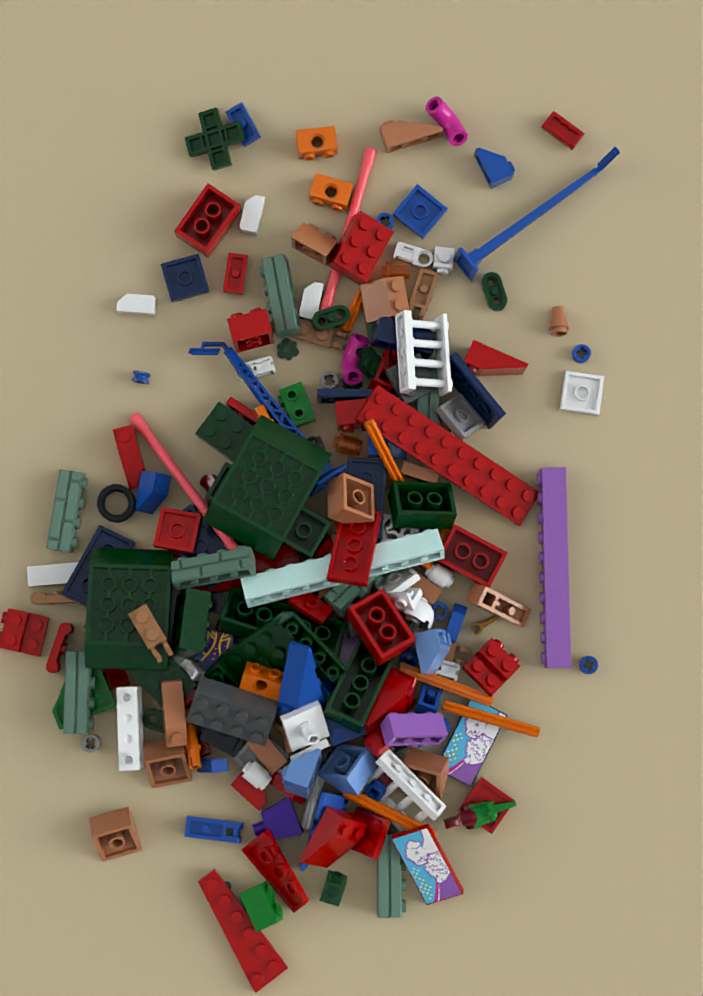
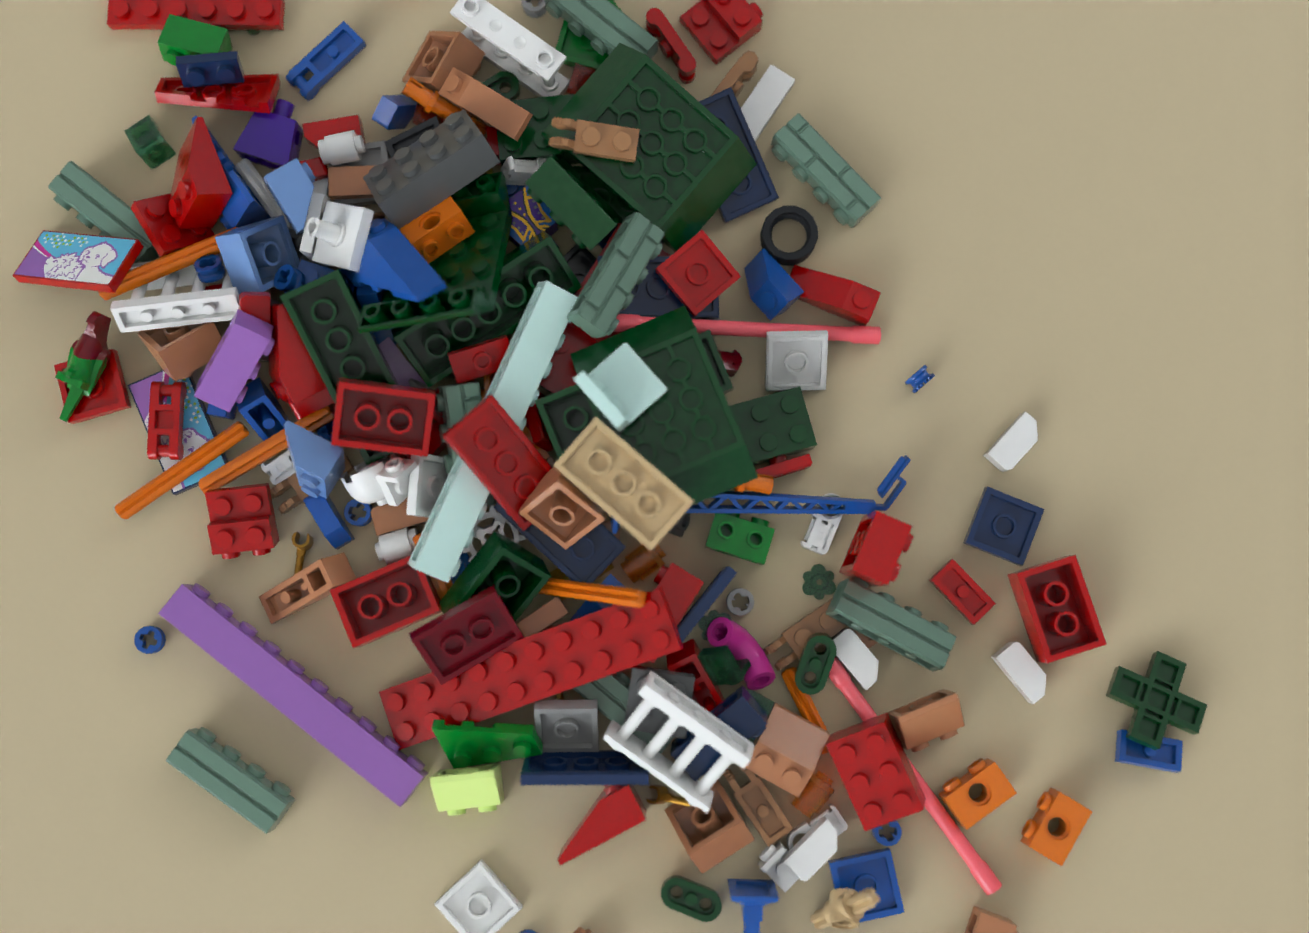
camera: 135 degrees right, 0 degrees up
(182, 447) = (796, 360): none -> white tile
(269, 882) = (210, 69): none -> dark blue plate
(271, 513) = (621, 386): none -> light aqua bracket
(319, 474) = (623, 483): none -> tan plate
(346, 736) = (288, 278): none -> blue bush
(423, 250) = (812, 850): none -> white piece
(438, 213) = (844, 908): none -> tan axle
(455, 498) = (466, 635): none -> dark red plate
(456, 304) = (713, 834): none -> nougat slope
(456, 343) = (664, 796): none -> pearl gold hand
(472, 748) = (166, 420): none -> red plate
(506, 454) = (483, 745): none -> green wing
(529, 441) = (468, 788): none -> yellowish green slope
(621, 564) = (231, 779): none -> sand green brick

